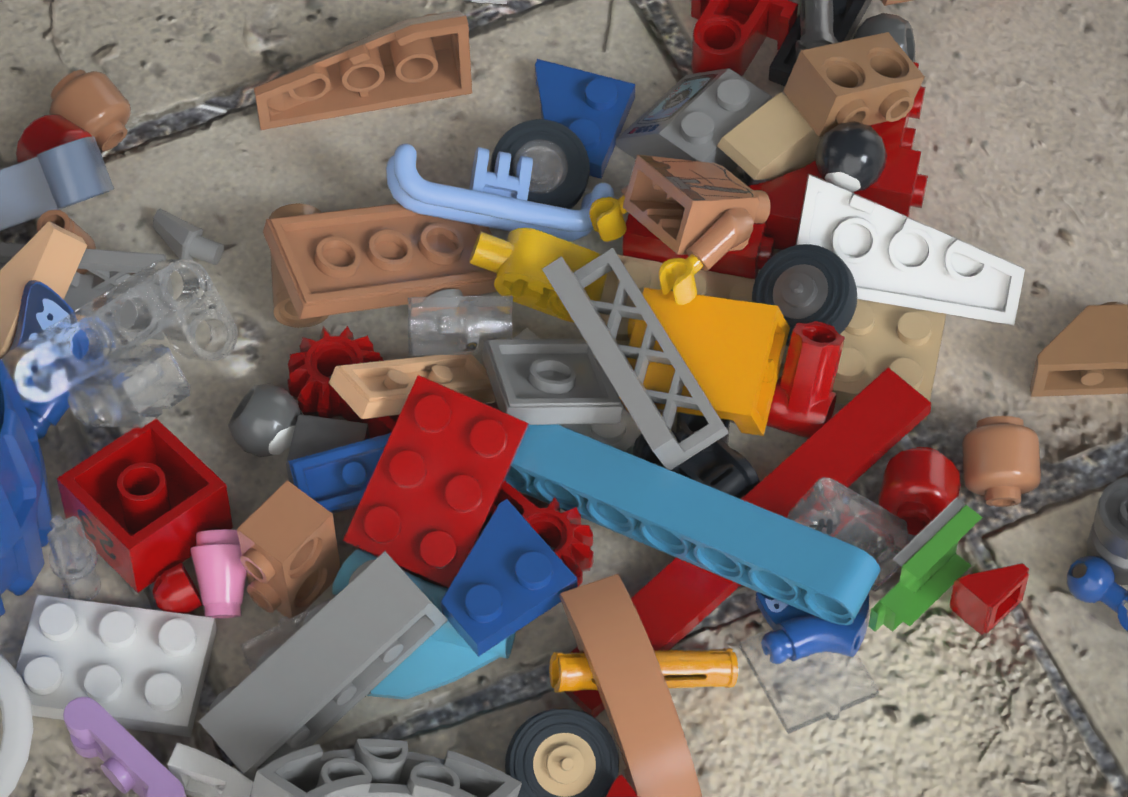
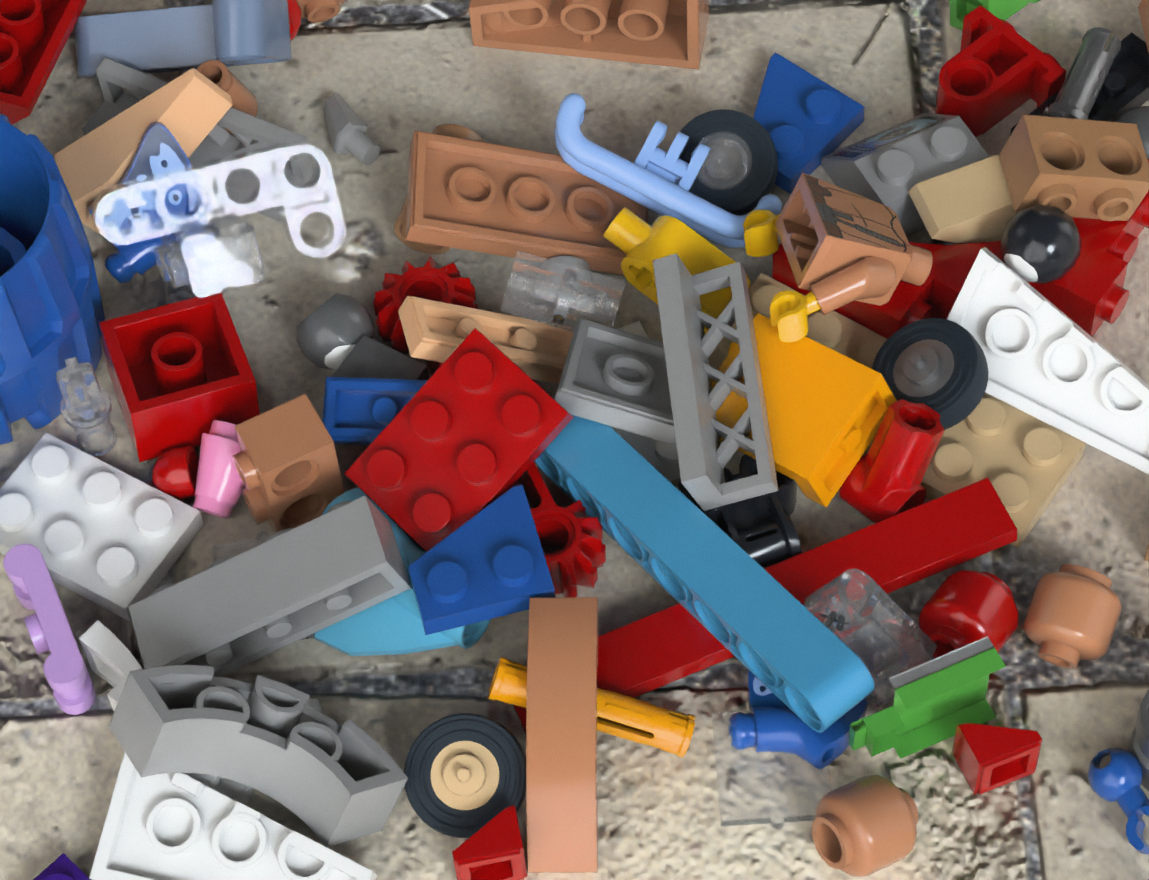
camera: 25 degrees right, 0 degrees up
(913, 690) = (865, 826): none -> nougat head

